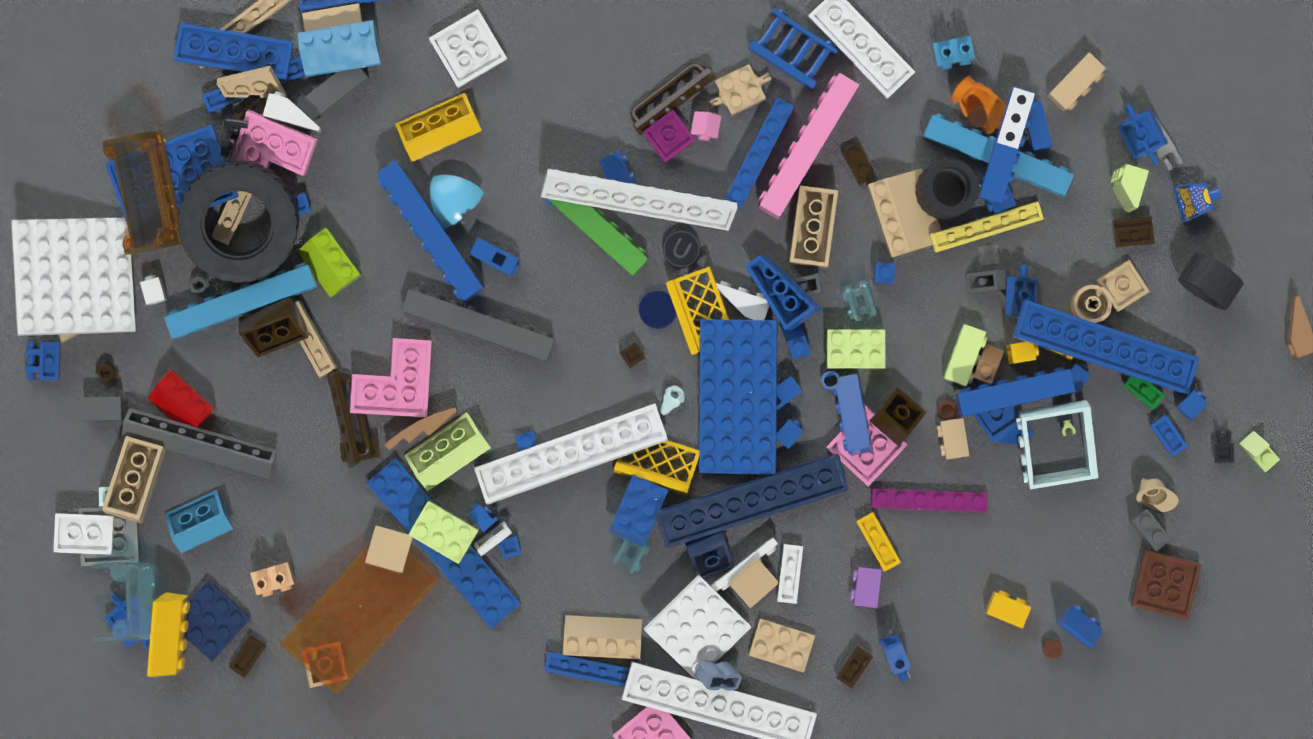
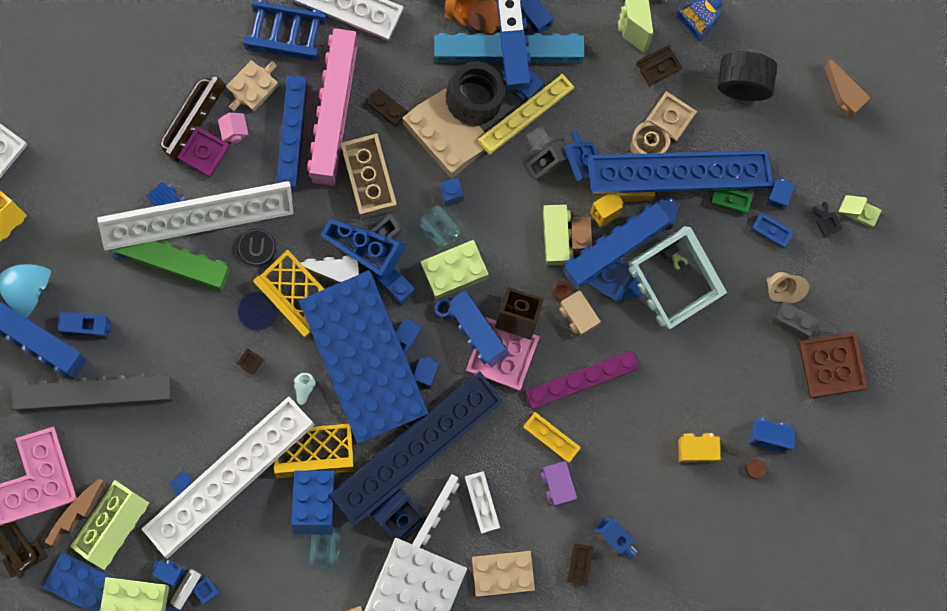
camera: 25 degrees left, 10 degrees down
(753, 582) = (451, 524): tan tile -> none

